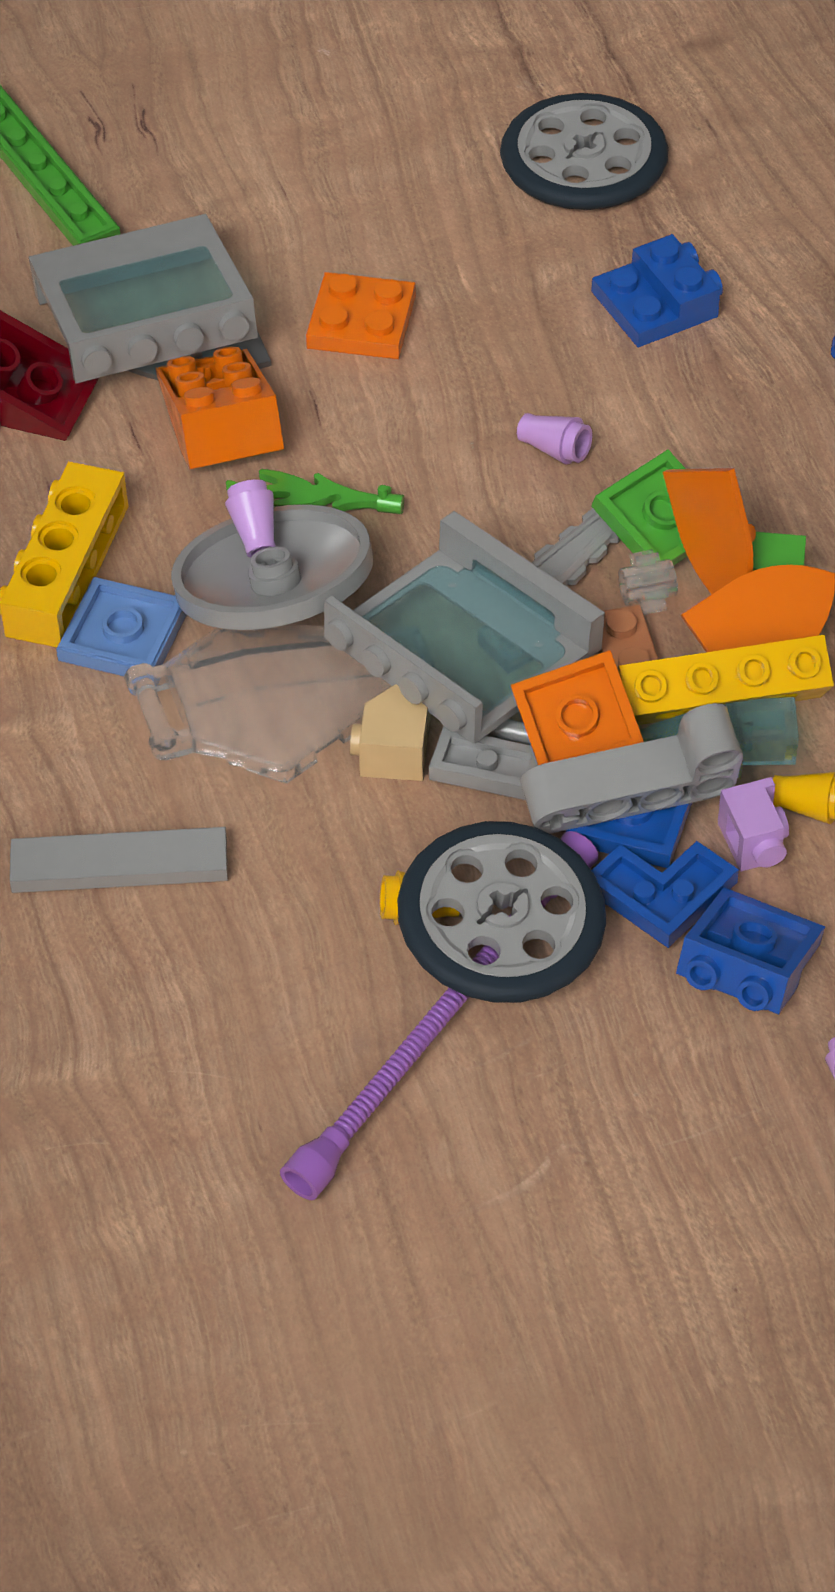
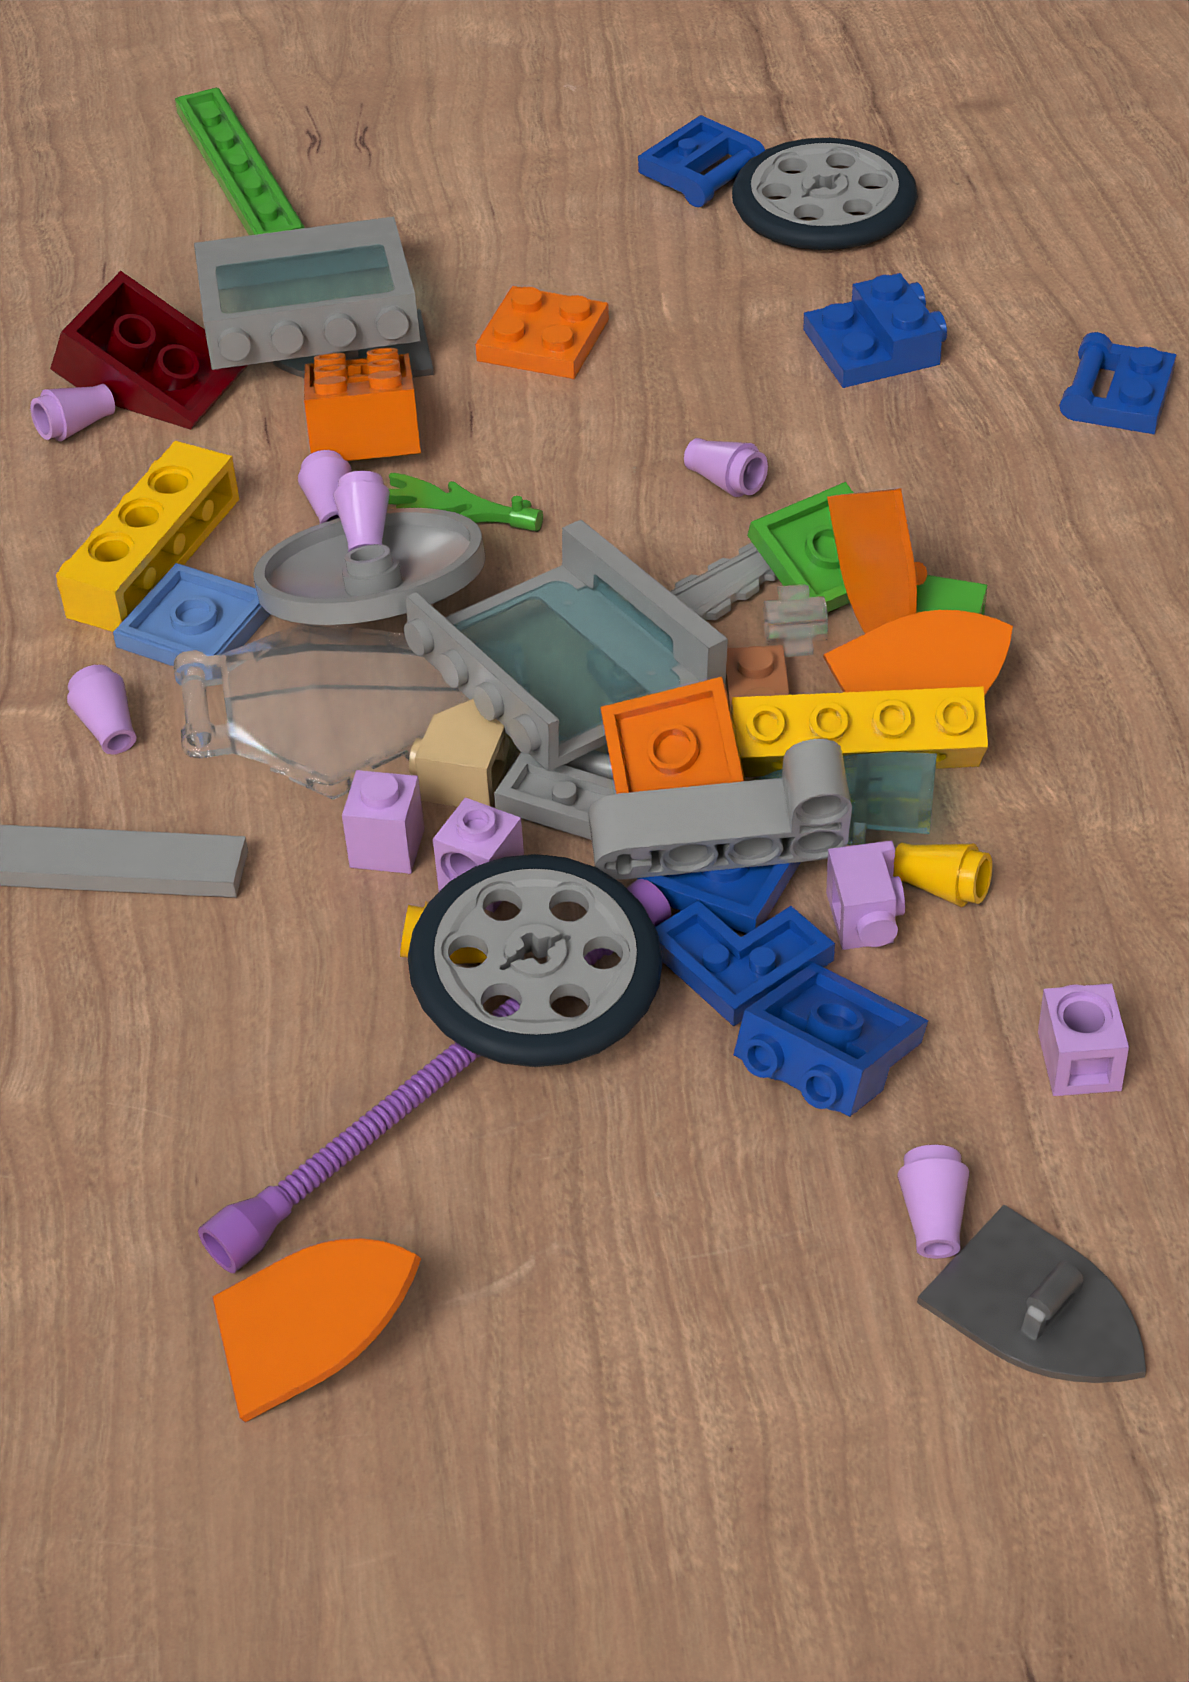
camera: 10 degrees right, 5 degrees down
(68, 720) = (102, 705): none -> lavender cone
(207, 488) = (320, 479): none -> lavender cone
(342, 802) = (383, 821): none -> lavender brick
(388, 1228) = (308, 1317): none -> orange shield
(425, 815) = (475, 837): none -> lavender brick
(456, 116) = (692, 149): none -> blue plate

